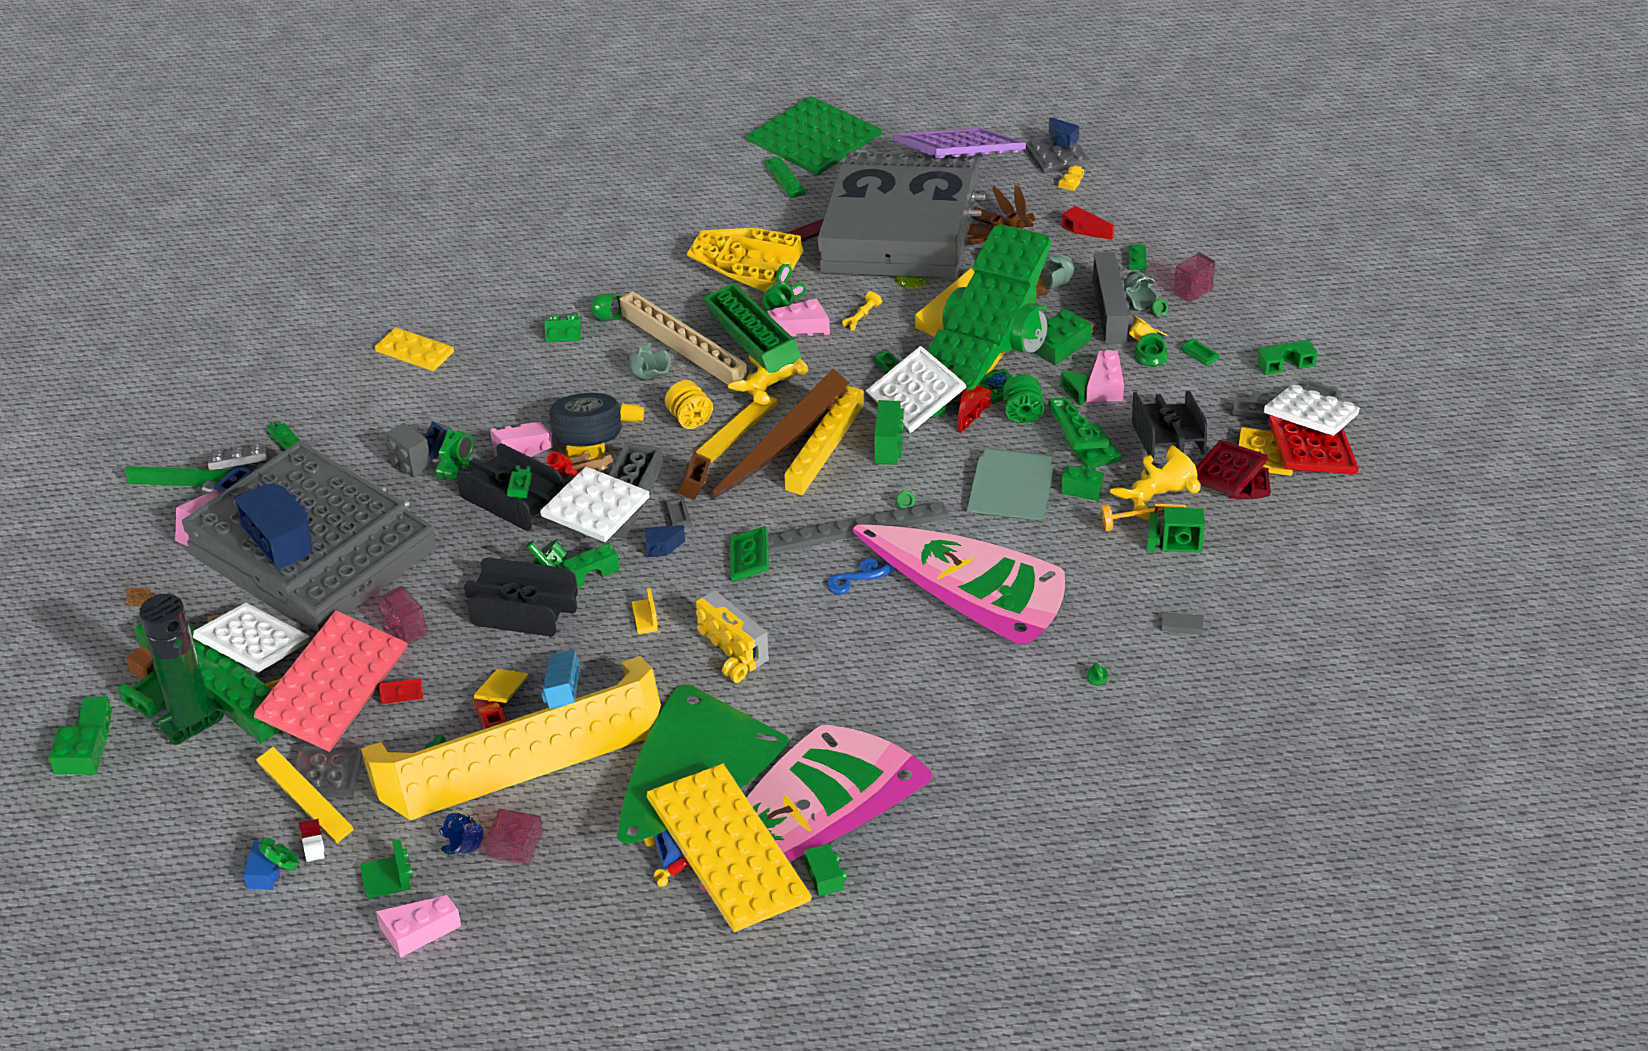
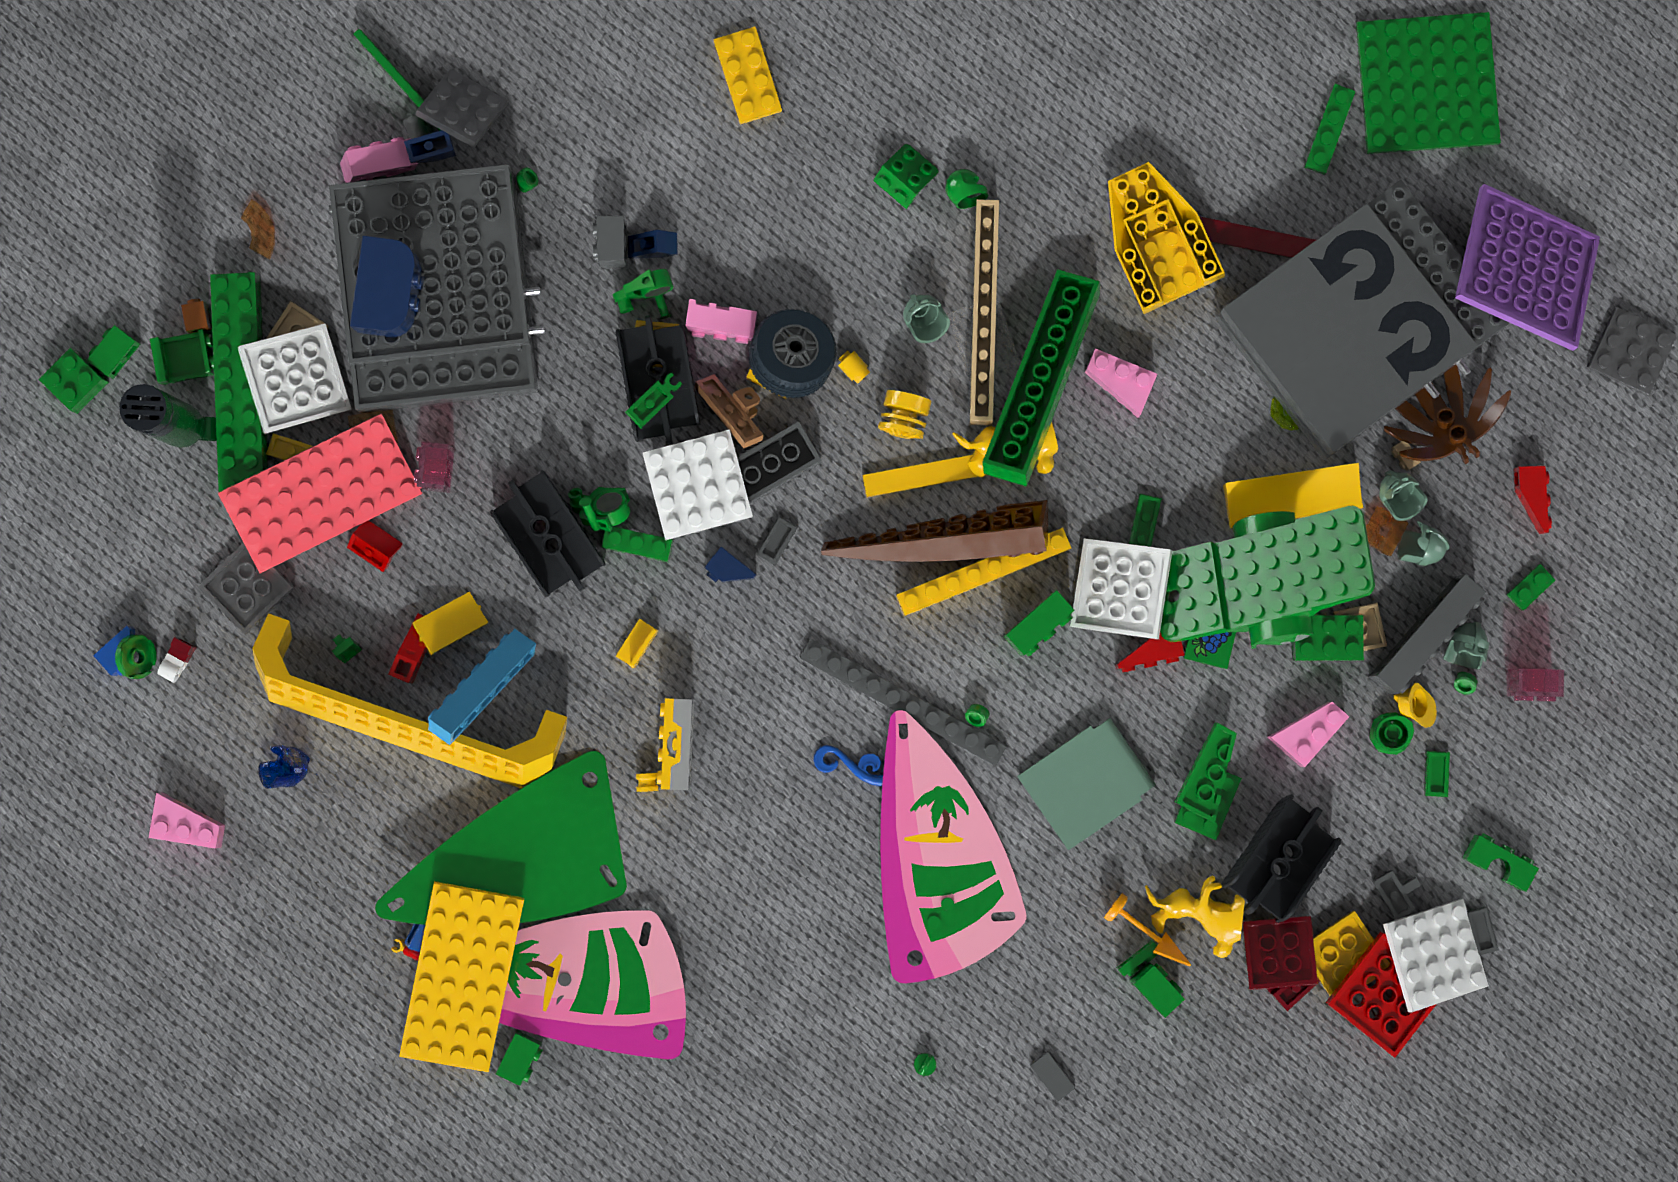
camera: 40 degrees right, 45 degrees up
(282, 435) = (533, 102): green hinge -> none
(305, 794) = (204, 604): yellow tile -> none
(387, 874) = (204, 747): green bracket -> none
(514, 836) = (323, 802): clear pink brick -> none
(561, 463) = (710, 405): red piece -> none
(694, 476) = (824, 515): reddish brown brick -> none
(749, 553) = (784, 656): green tile -> none
(780, 293) = (1136, 328): green piece -> none
(872, 300) = (1219, 415): yellow piece -> none
(1023, 399) = (1201, 693): green wheel -> none
(1063, 133) = (1658, 340): dark blue slope -> none
(1072, 179) = (1595, 408): yellow plate -> none
(1075, 385) = (1273, 716): green slope -> none
(1082, 482) = (1143, 844): green brick -> none

